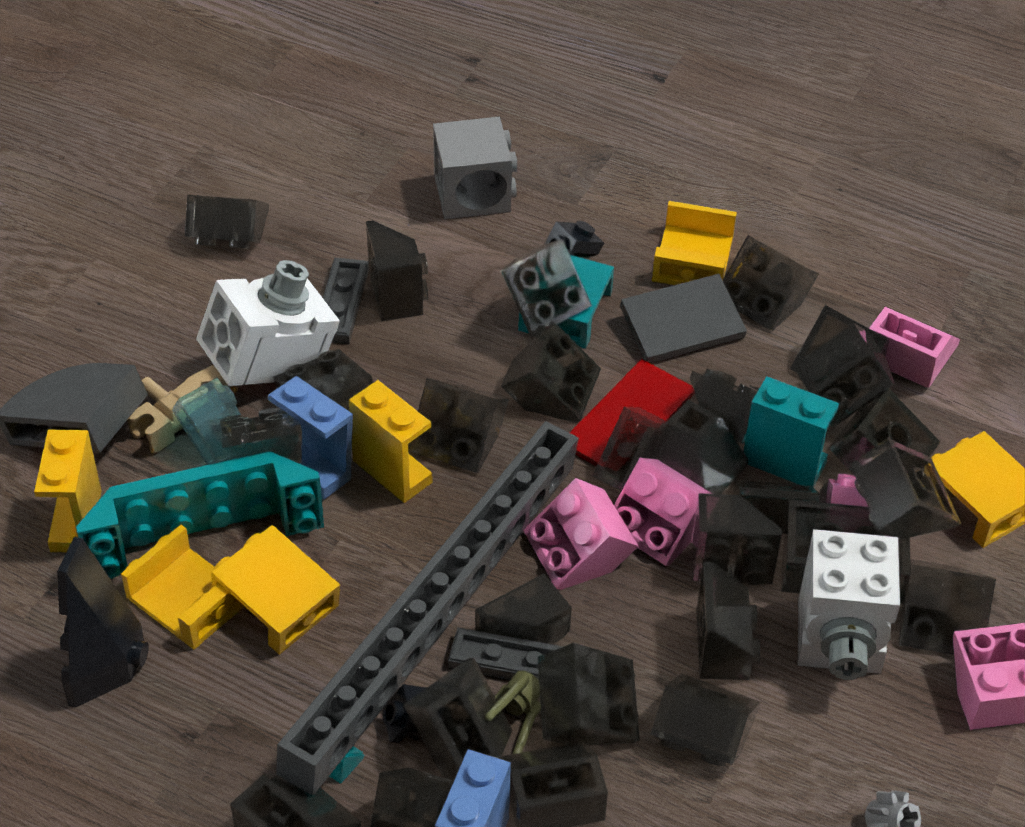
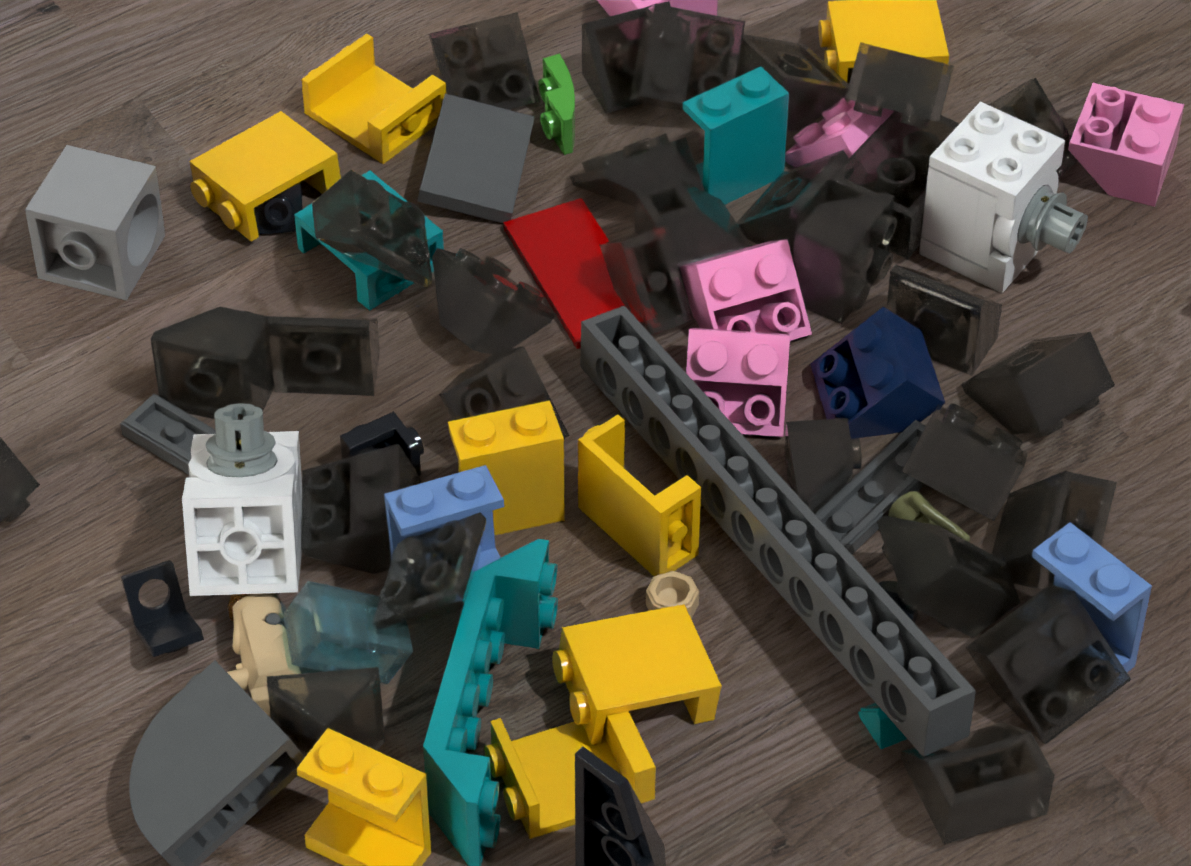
camera: 60 degrees left, 0 degrees up
(132, 443) = (335, 700): none -> clear smoke slope
(186, 348) = (167, 625): none -> black bracket
(361, 583) = (672, 590): none -> tan tile
(392, 374) = (380, 434): none -> black bracket
(429, 491) = (652, 528): none -> yellow panel
(449, 315) = (324, 354): none -> clear smoke slope
(584, 218) = (258, 167): none -> yellow panel
(638, 616) = (878, 377): none -> dark blue slope
(765, 339) = (559, 99): none -> bright green slope

